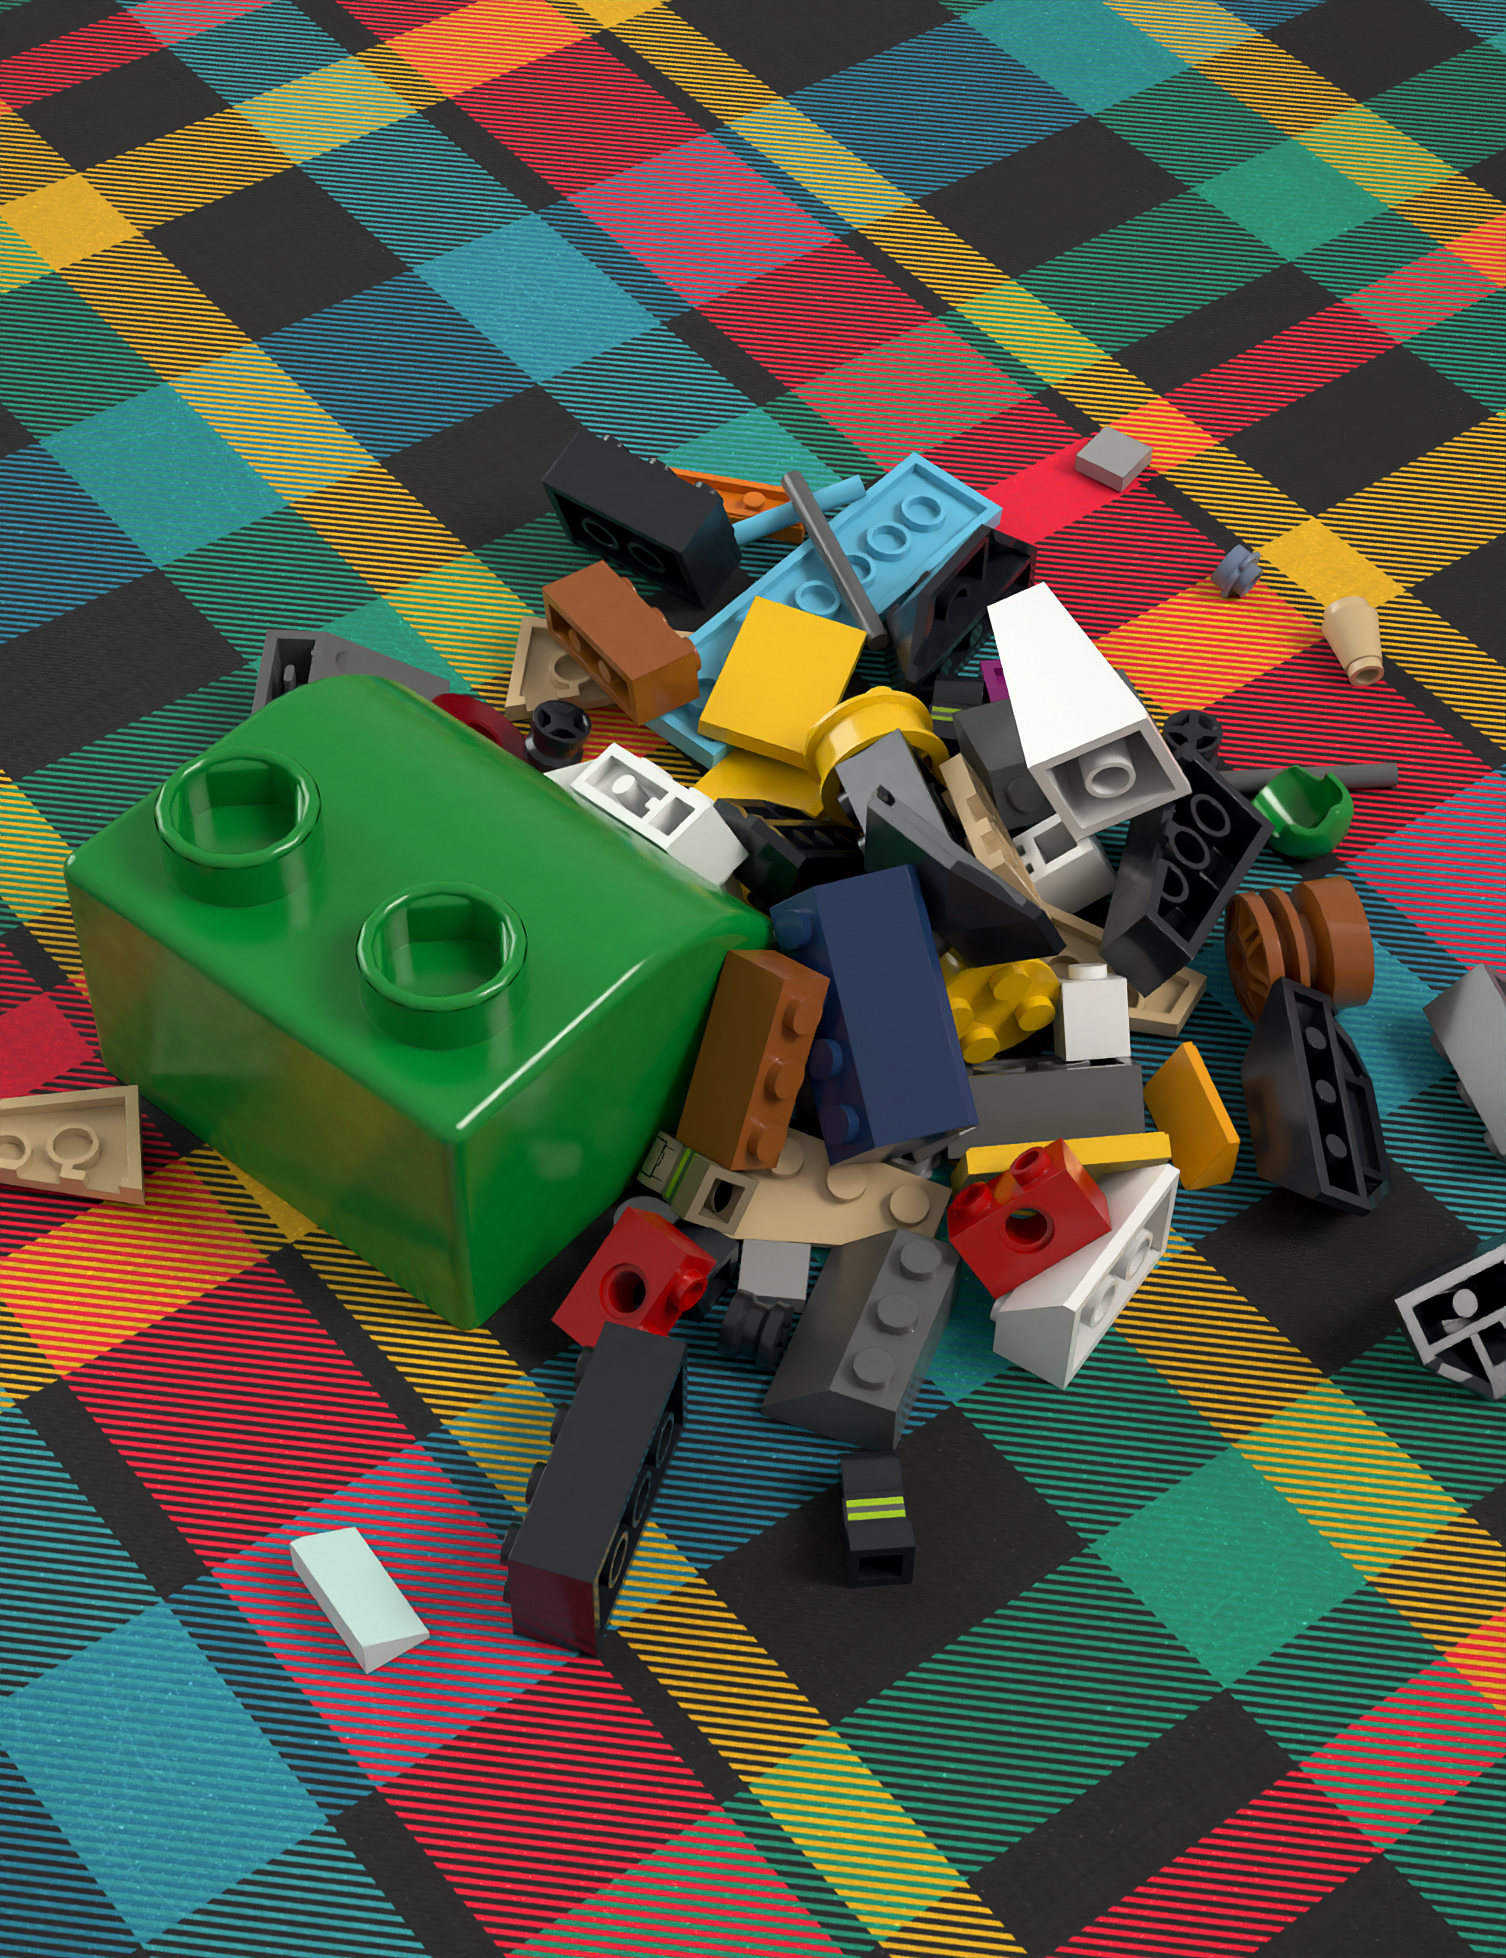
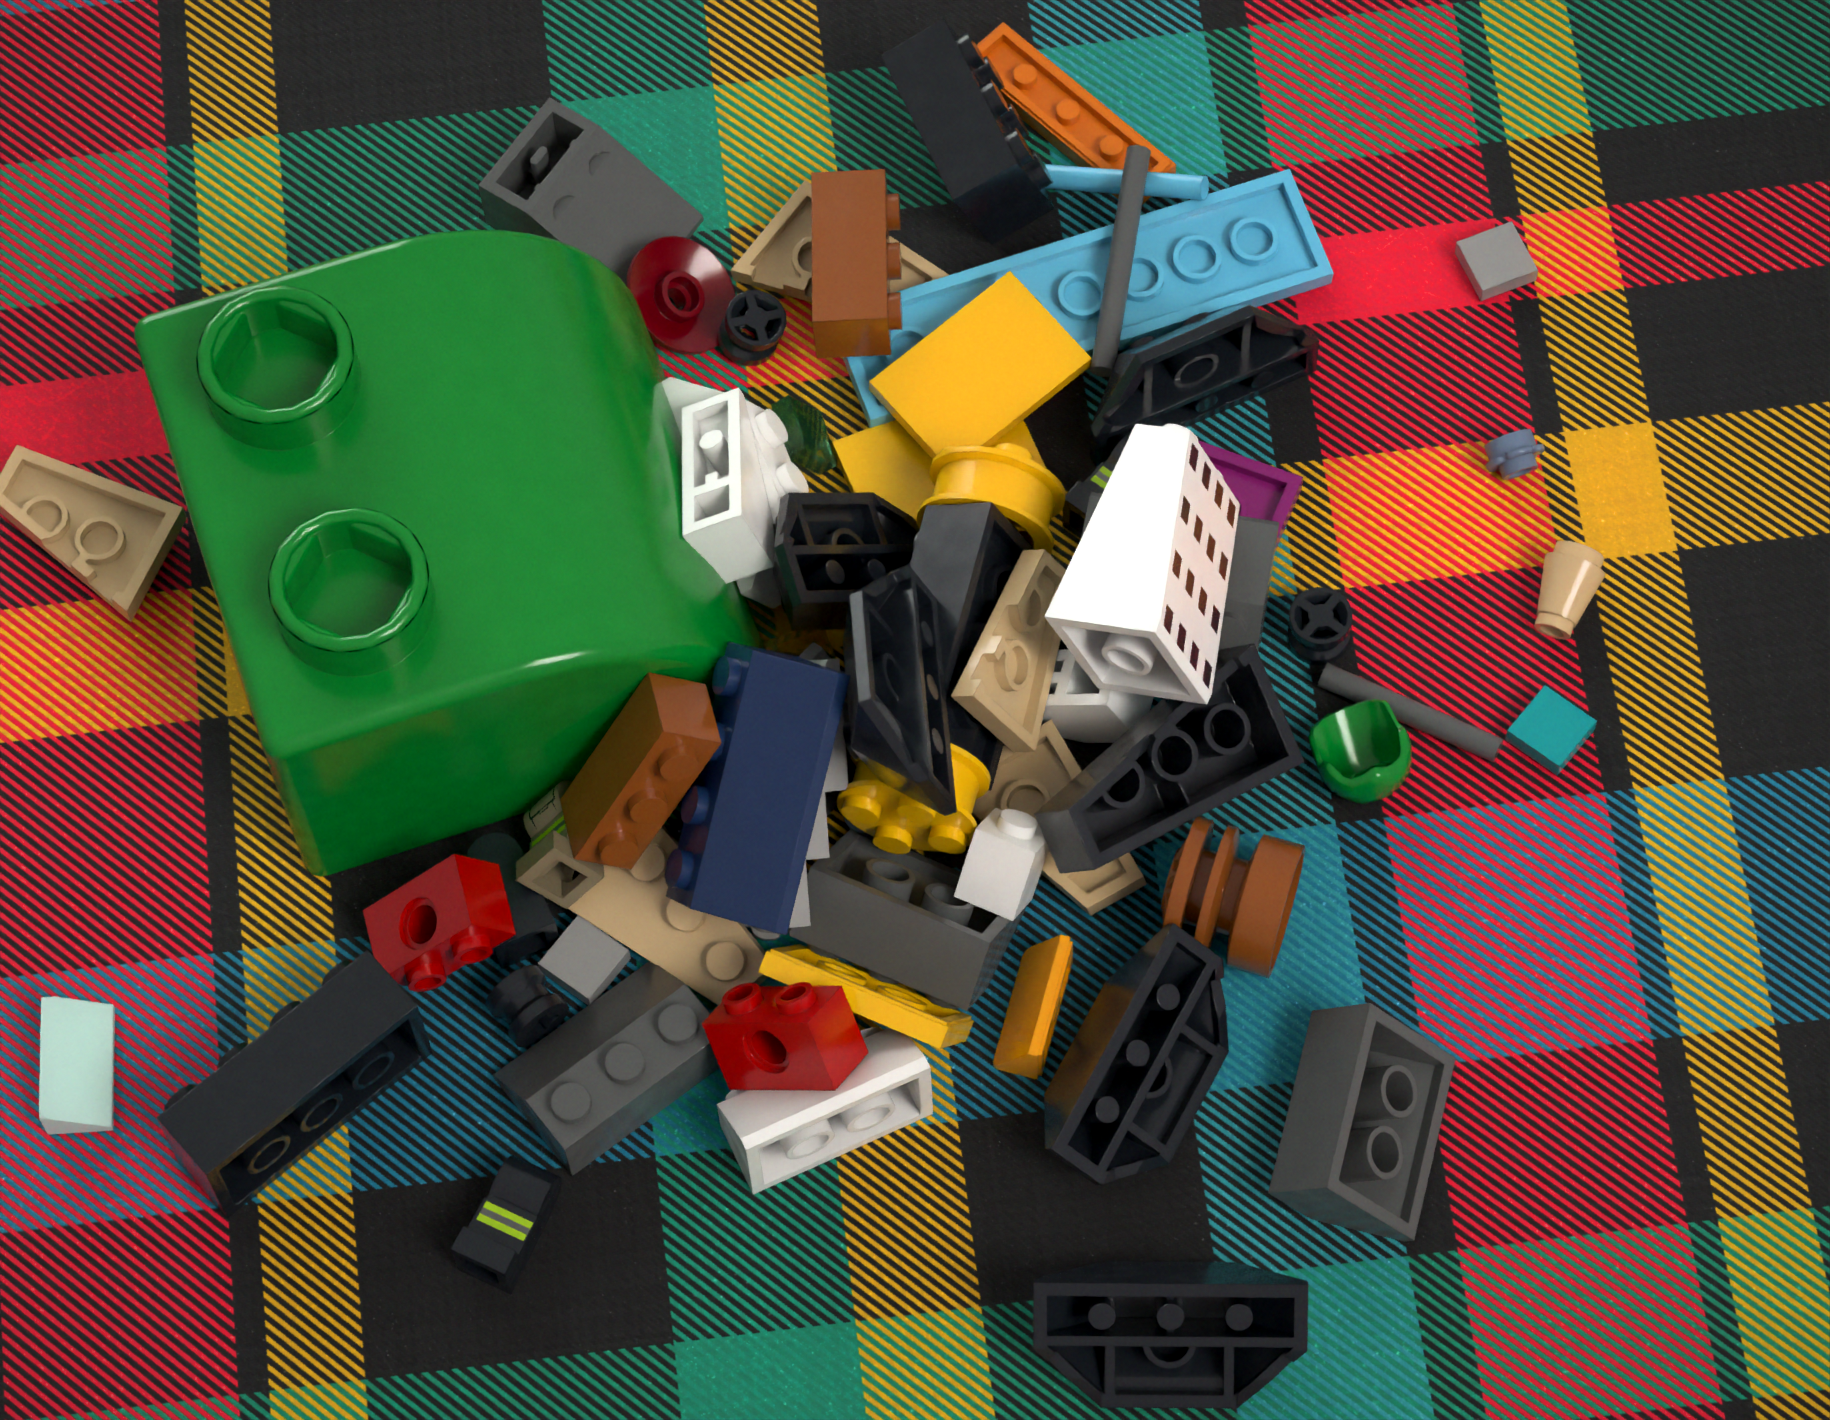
camera: 35 degrees right, 15 degrees up
(1423, 742) = (1551, 730): none -> teal tile

